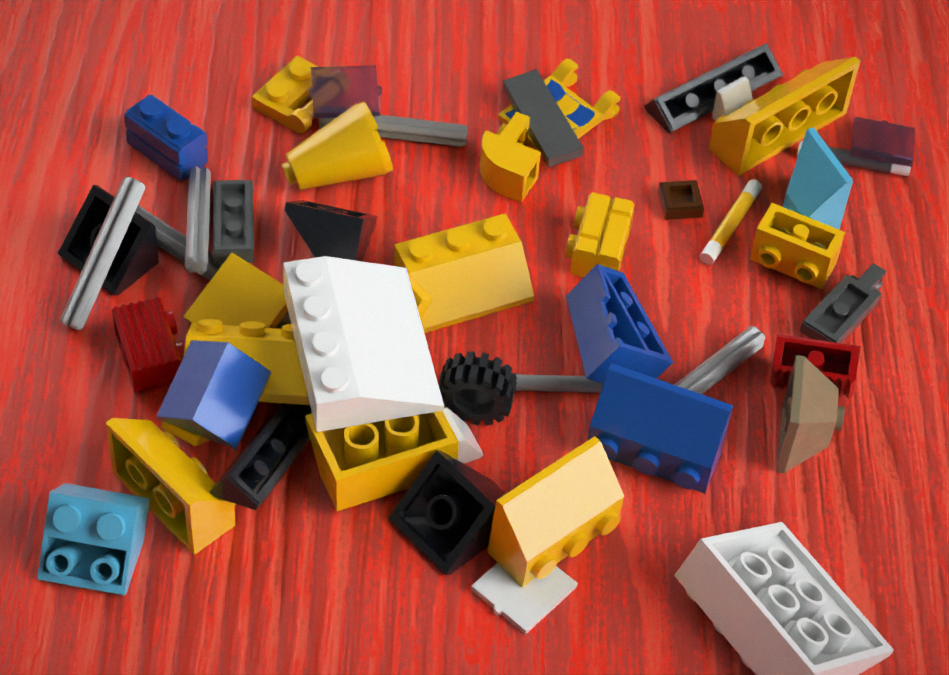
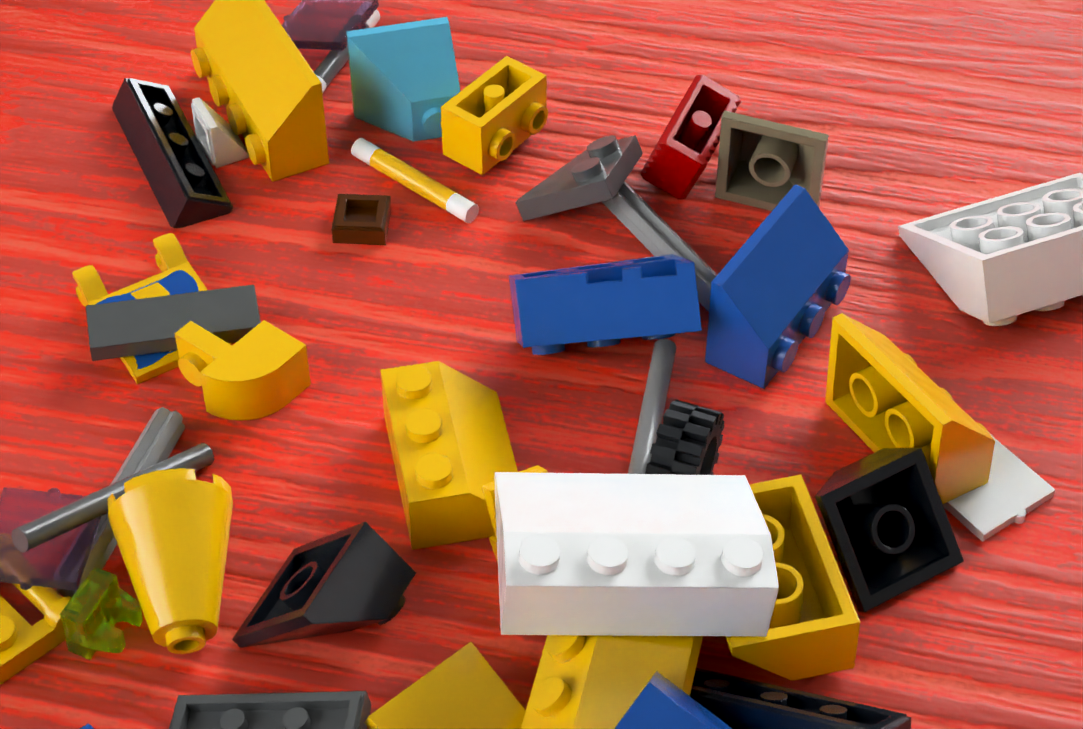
camera: 75 degrees left, 5 degrees down
(296, 126) = (94, 611): none -> clear neon green tile
(381, 115) = (96, 504): none -> dark grey bar
(601, 233) = (421, 297): yellow brick -> none
(755, 313) = (584, 180): none -> dark grey wing
(845, 306) = (589, 102): dark grey hinge -> none

